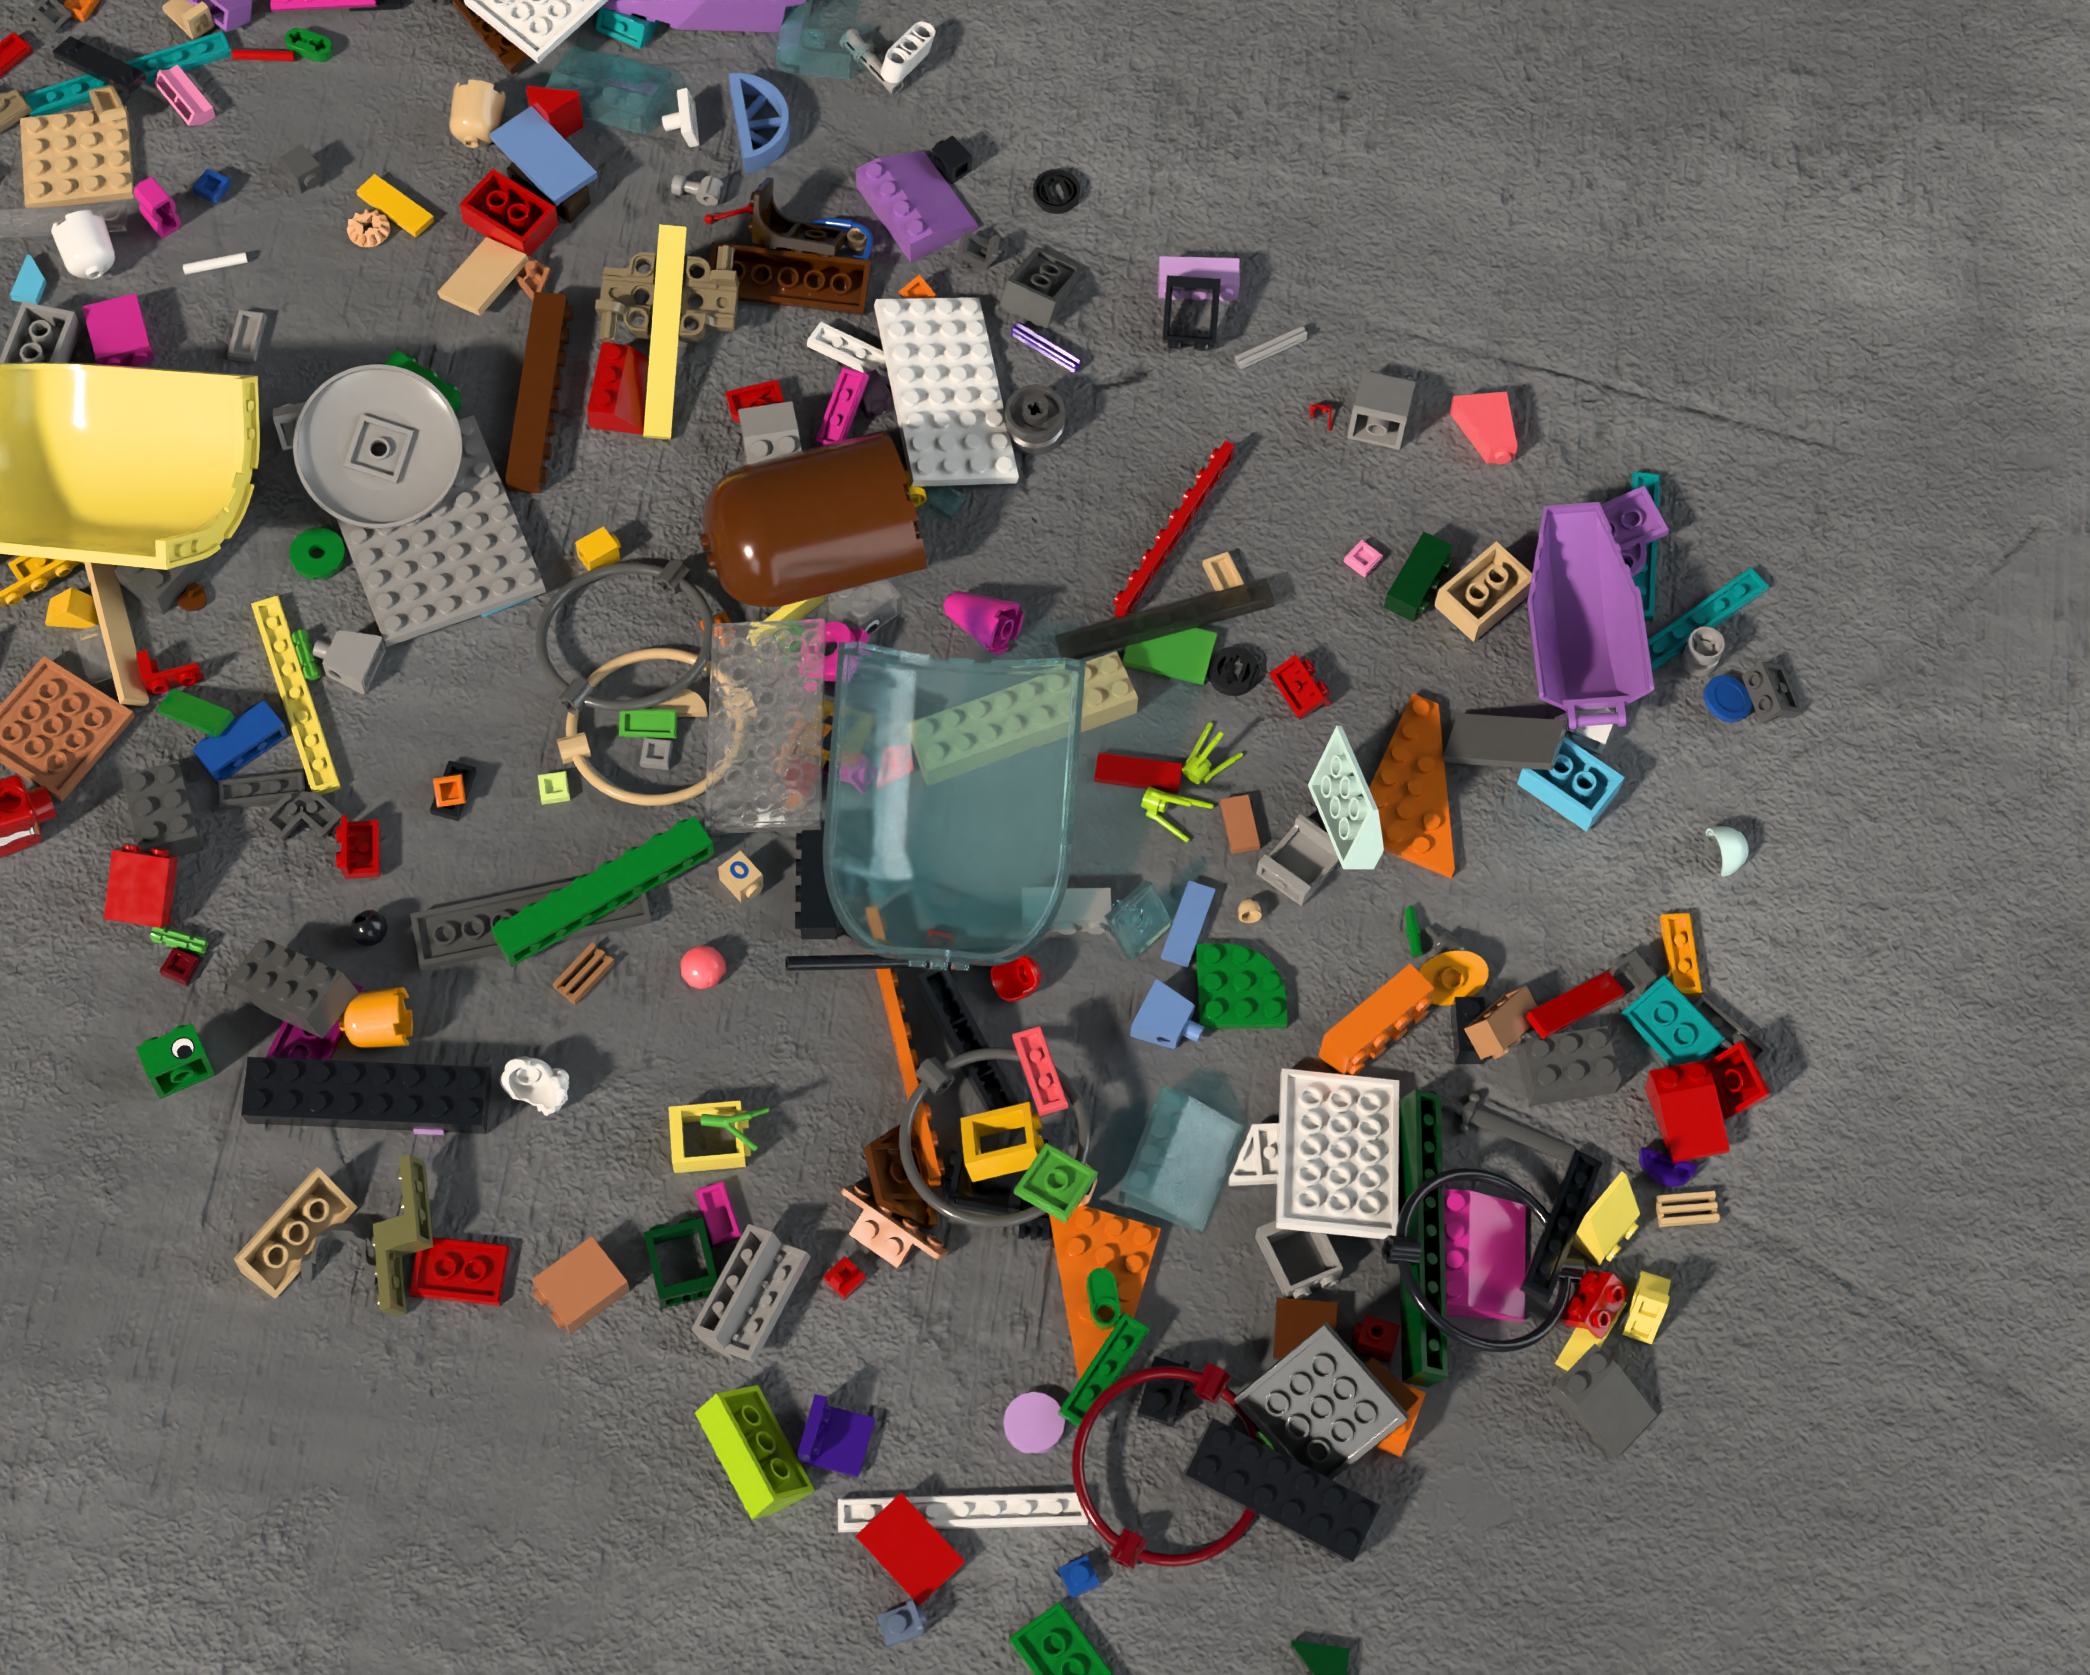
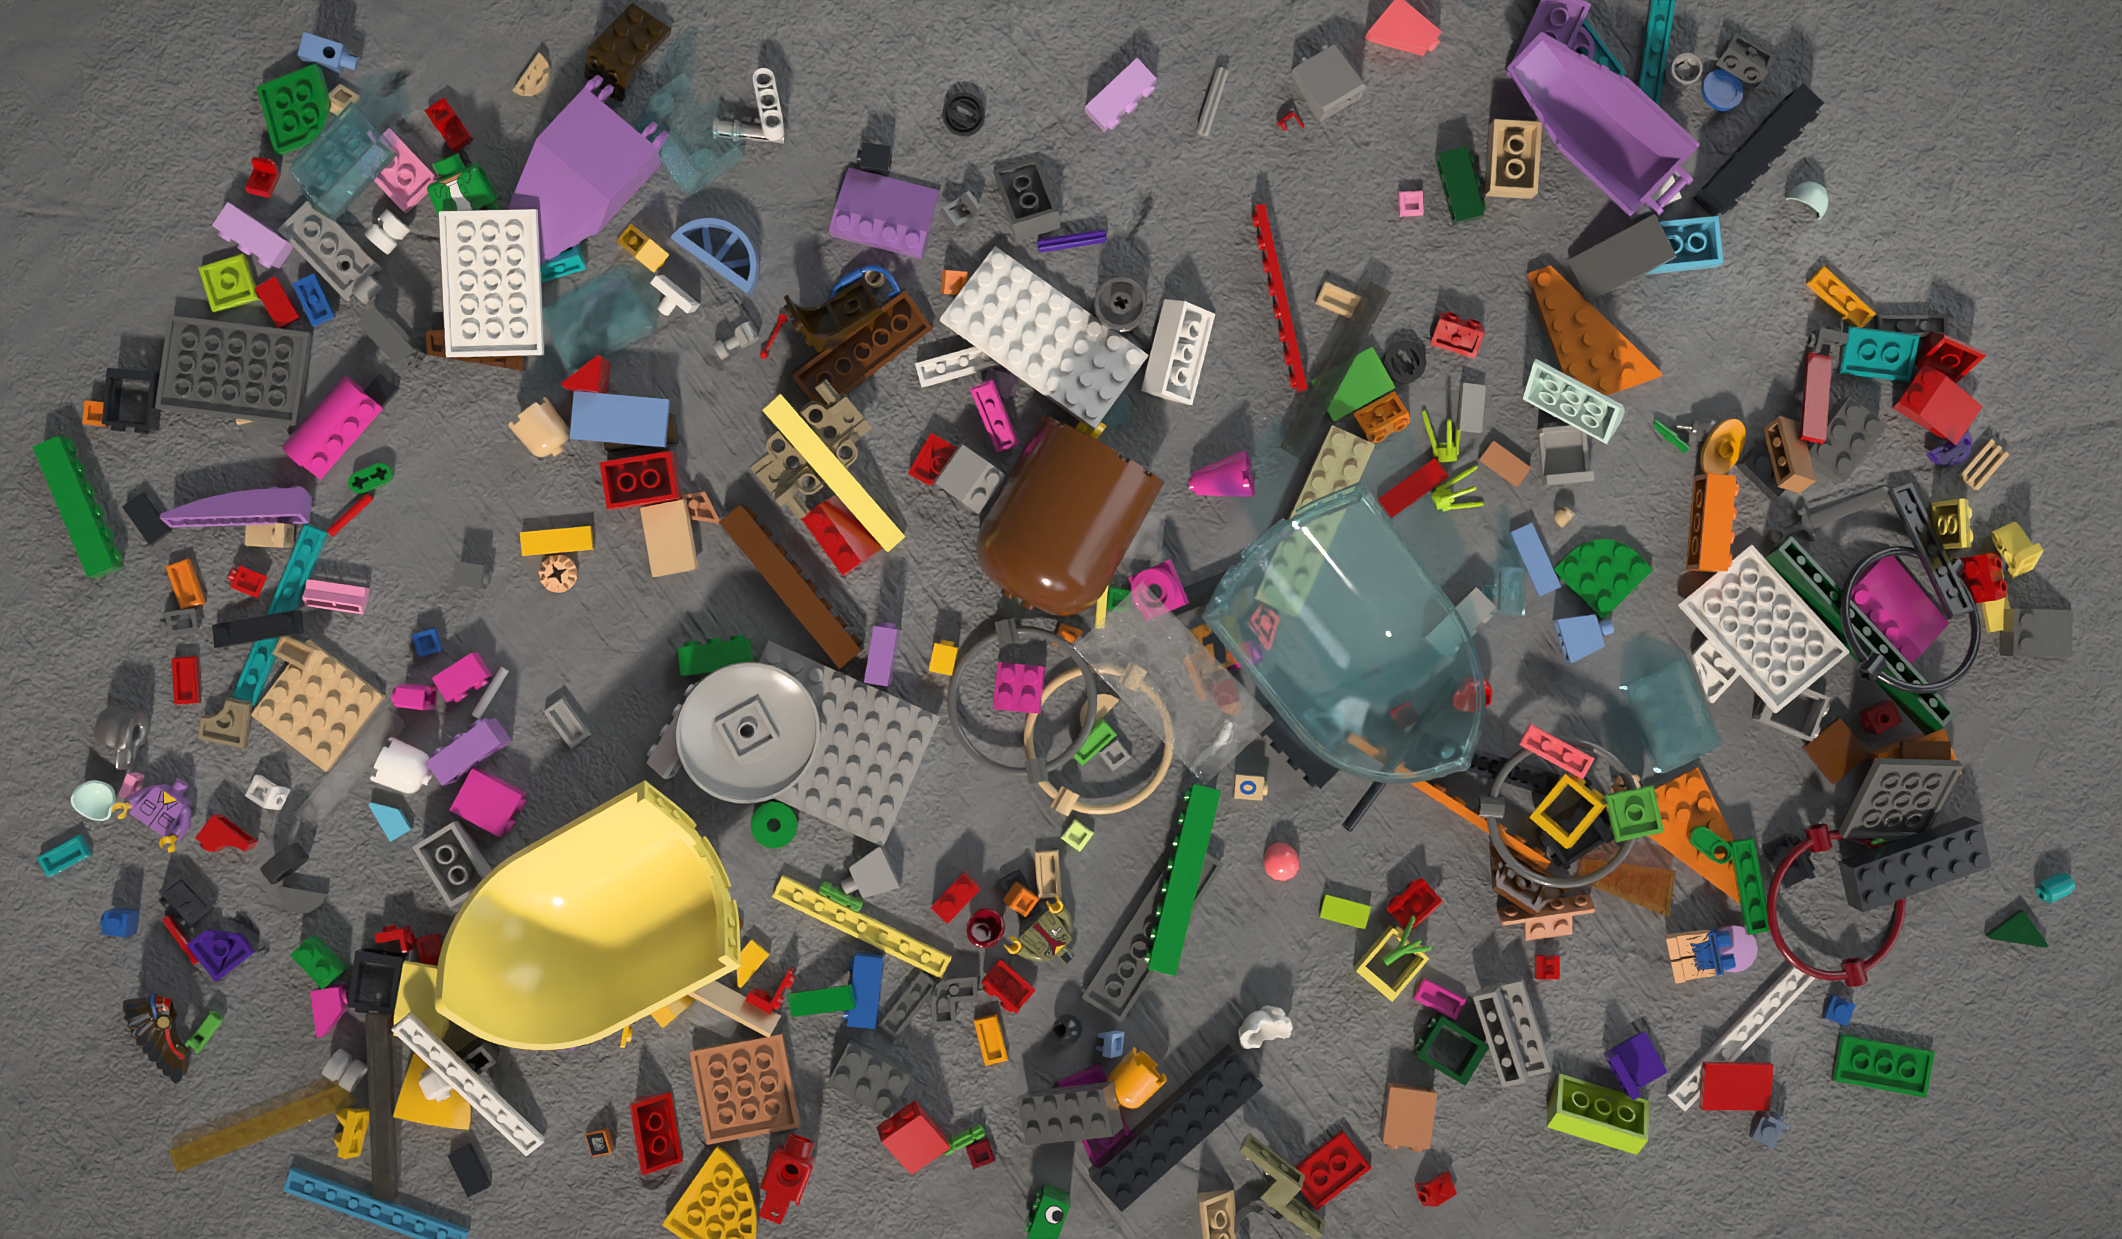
camera: 40 degrees left, 25 degrees up
(133, 28) = (246, 580): none -> red bracket
(157, 278) = (468, 750): none -> medium lavender brick
(173, 637) = (751, 958): none -> yellow tile
(207, 230) = (462, 677): none -> dark pink brick
(296, 882) = (990, 1039): none -> light orange tile
(393, 975) = (1112, 1043): none -> light blue tile
(394, 781) = (985, 928): none -> dark red hair
(398, 737) = (955, 897): none -> red brick
(438, 837) = (1046, 936): none -> olive torso
(494, 795) = (1048, 873): none -> tan tile
(535, 1378) = (1436, 1190): none -> red bracket
(551, 497) = (882, 654): none -> medium lavender brick
(599, 955) = (1217, 952): medium nougat tile -> none
(634, 628) = (1019, 688): none -> dark pink plate
(699, 69) = (642, 248): none -> yellow slope
(714, 1060) = (1345, 911): none -> lime tile
(787, 1104) = (1416, 901): none -> red bracket
(994, 1389) = (1698, 954): none -> hips
(1000, 1276) = (1635, 883): none -> clear orange wing
(1046, 496) = (1178, 351): none -> white slope
(1167, 695) = (1382, 418): none -> orange bracket
(1191, 284) = (1129, 112): black window -> none
(1254, 753) = (1471, 407): none -> light grey tile
(1401, 1655) = (2055, 887): none -> teal brick
(1712, 762) = (1759, 150): none -> black brick

